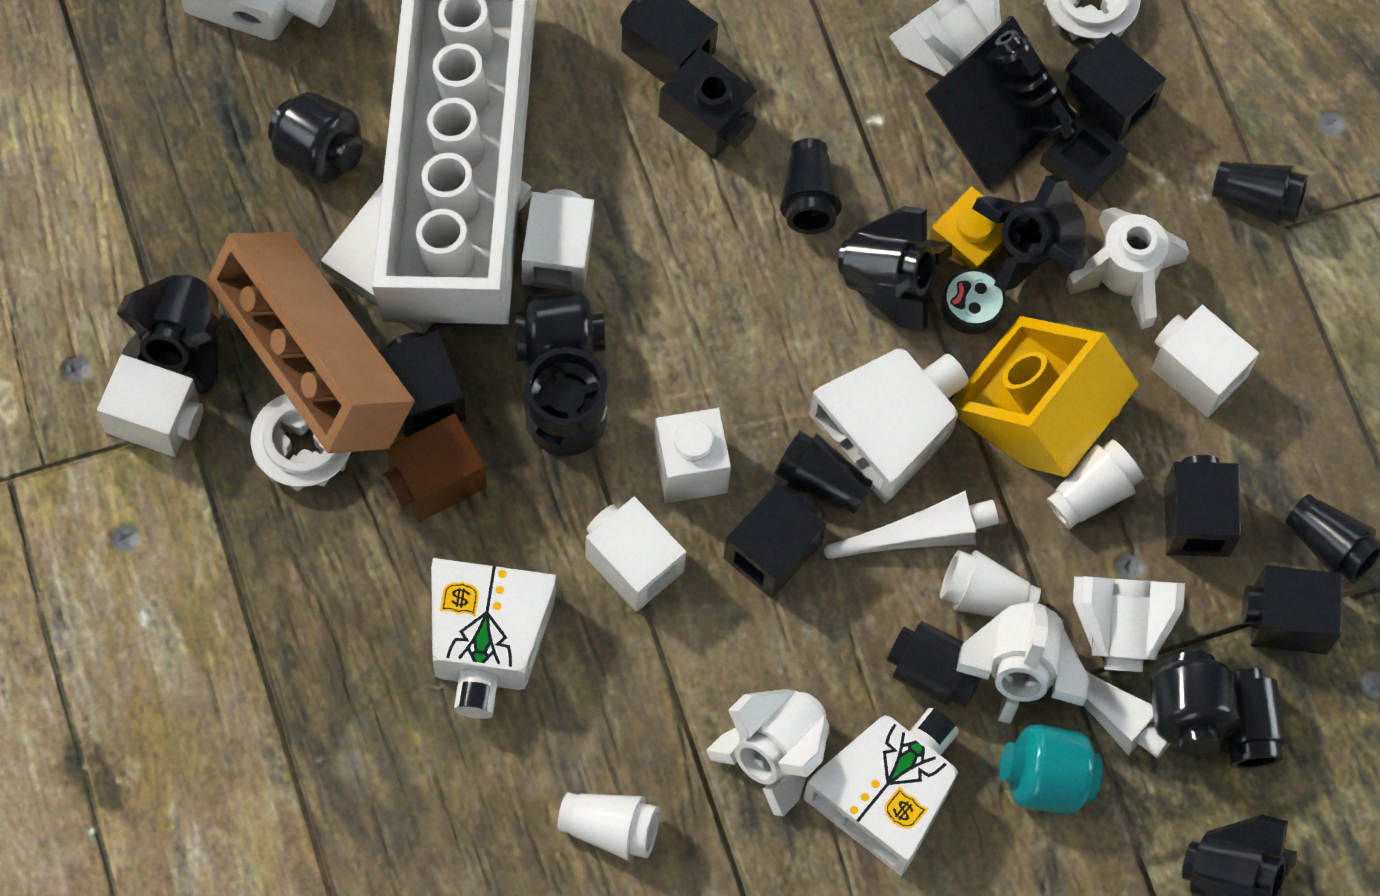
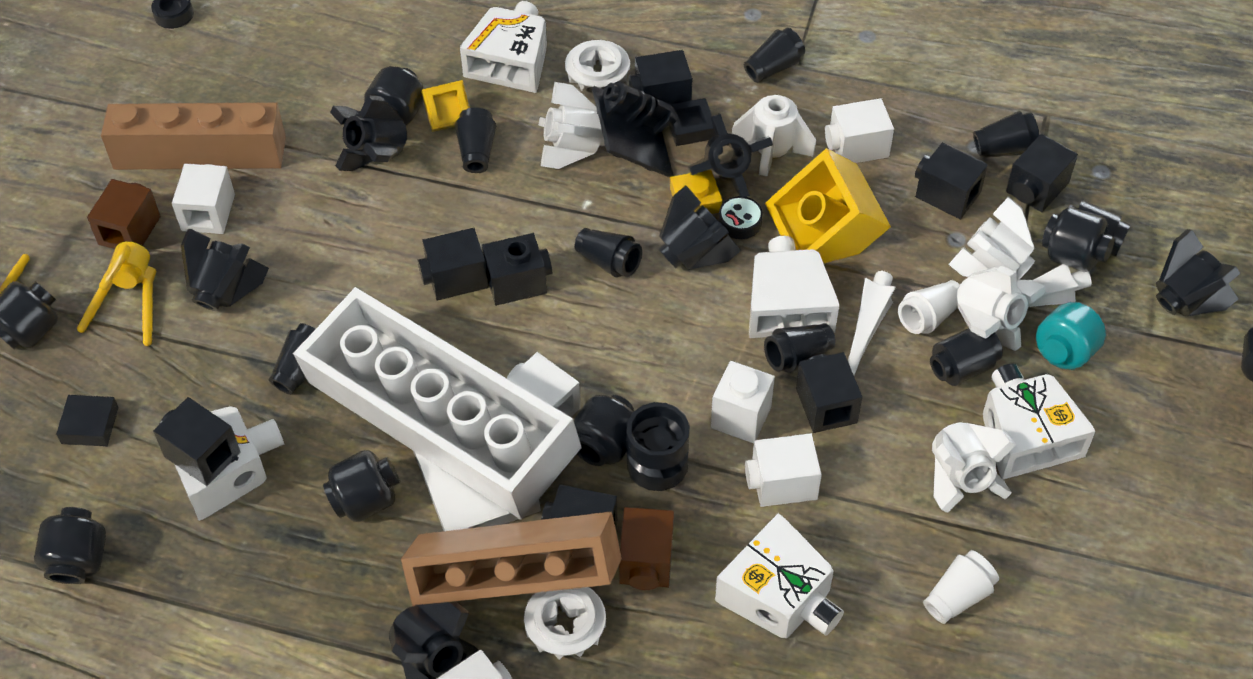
camera: 50 degrees left, 15 degrees down
(1095, 484) = (903, 216): white cone -> none

